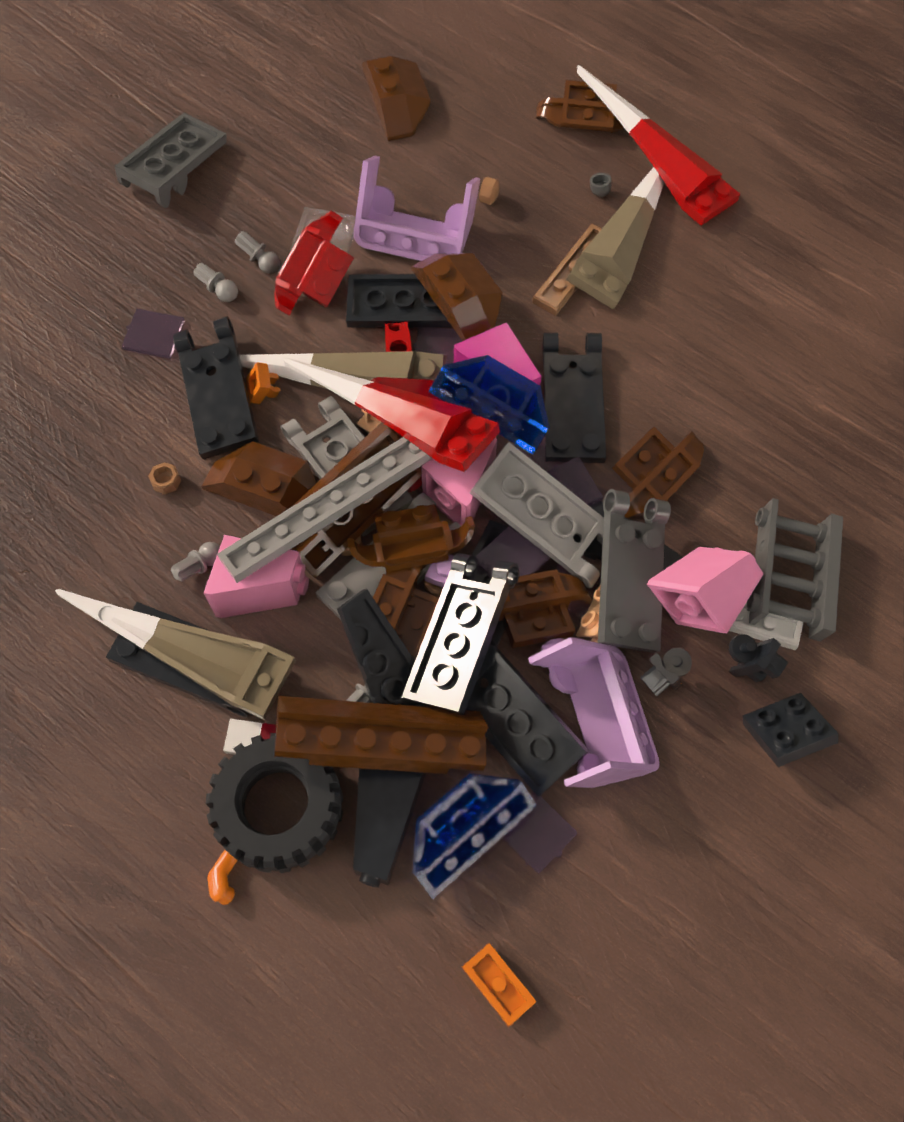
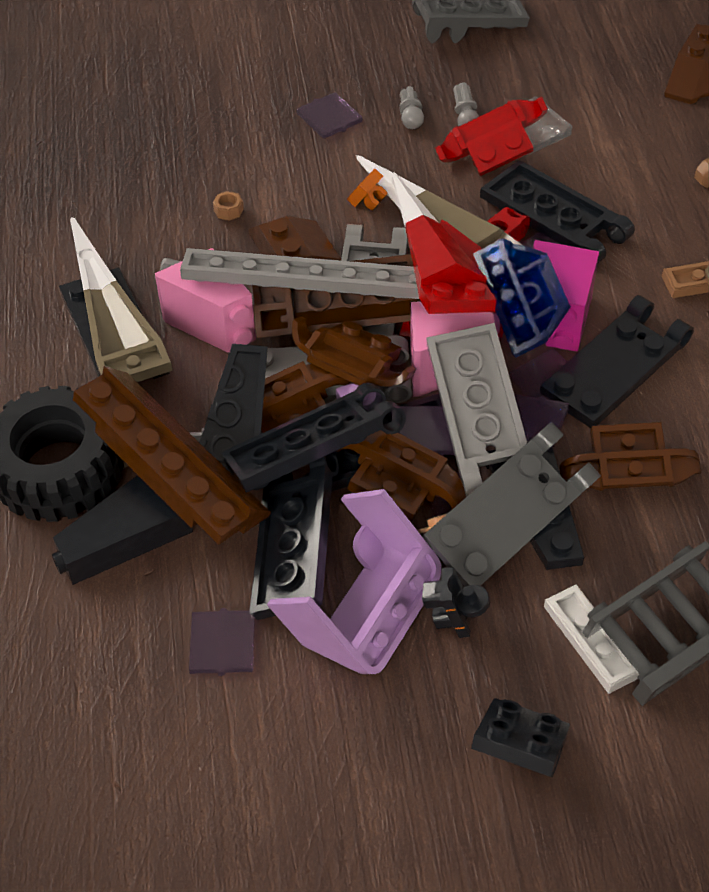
camera: 45 degrees right, 15 degrees down
(217, 402) = (330, 173): black hinge -> none
(406, 235) = (588, 149): lavender windscreen -> none
(461, 291) = (596, 215): reddish brown wedge -> none
(465, 827) = (161, 573): clear blue wedge -> none
(499, 984) = (65, 715): orange plate -> none
(707, 587) = (565, 565): bright pink slope -> none
(755, 658) = (549, 653): black hips -> none

